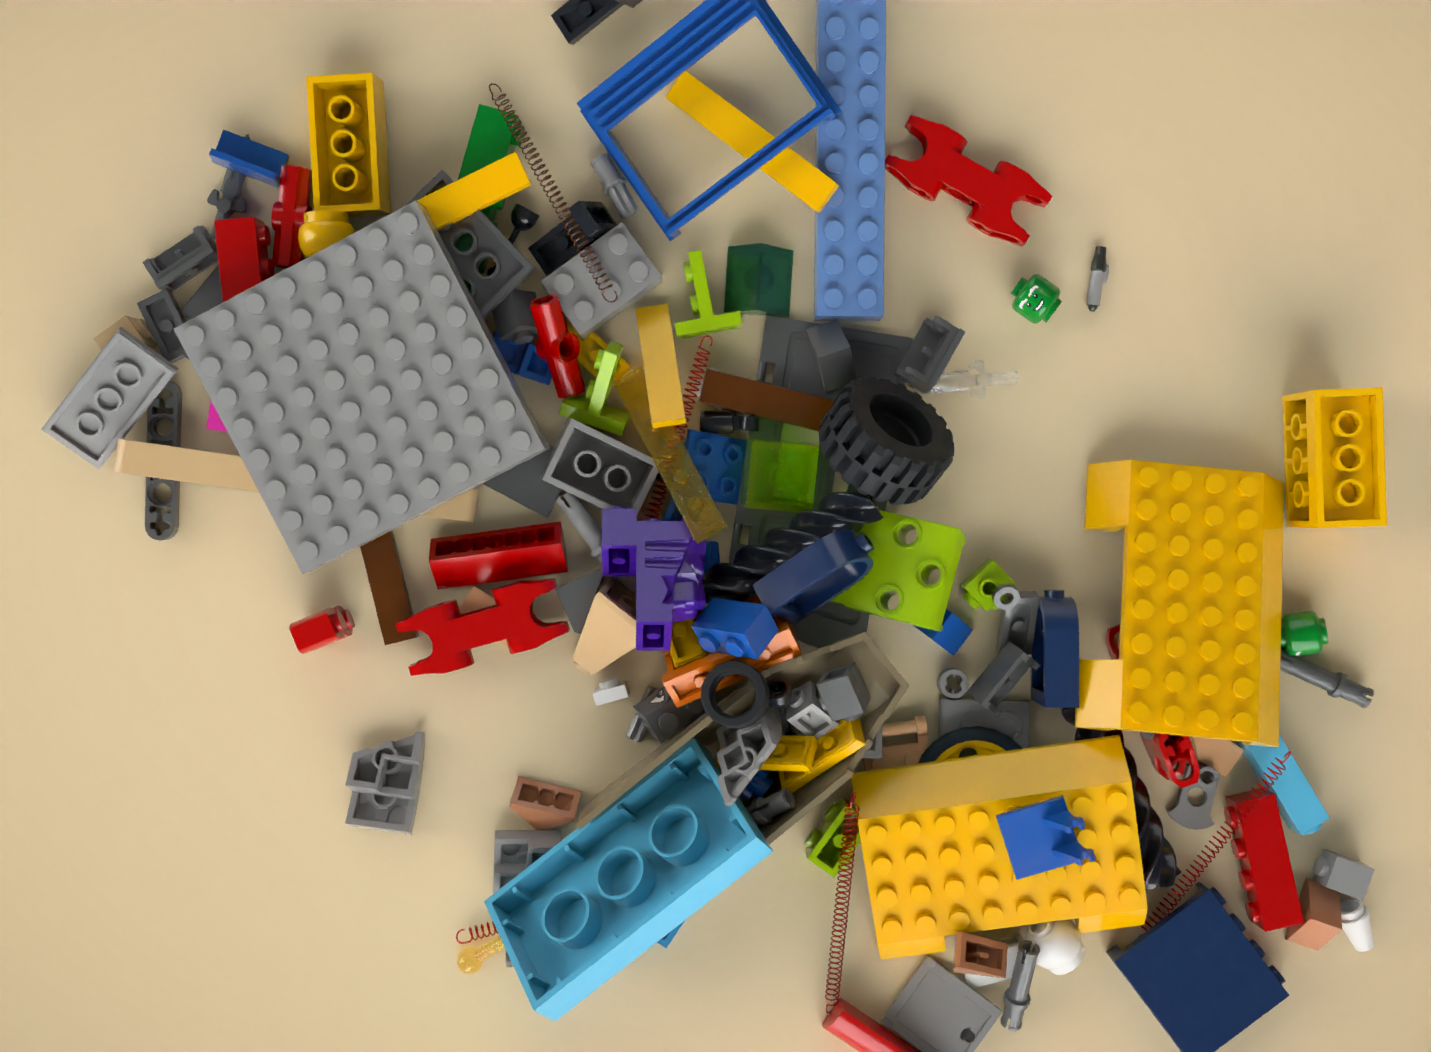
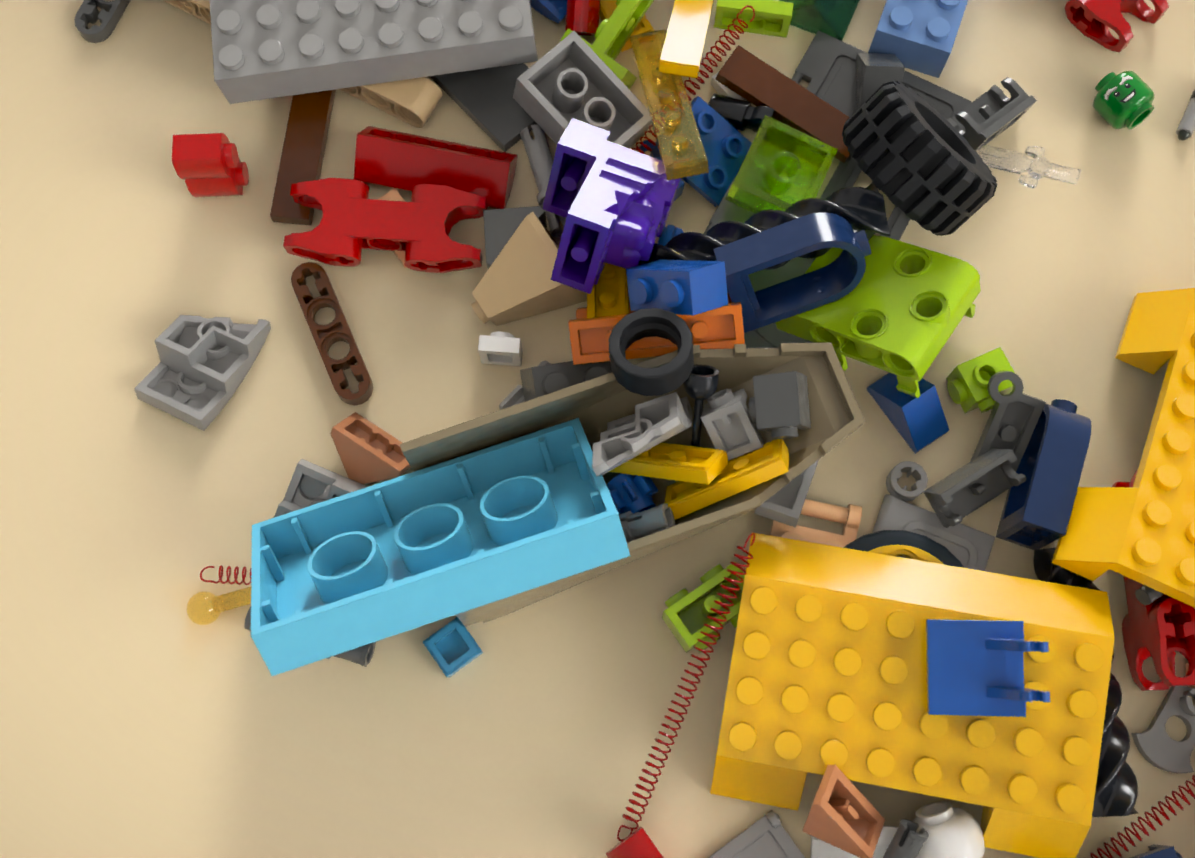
camera: 20 degrees right, 15 degrees down
(478, 718) = (333, 332): none -> reddish brown beam

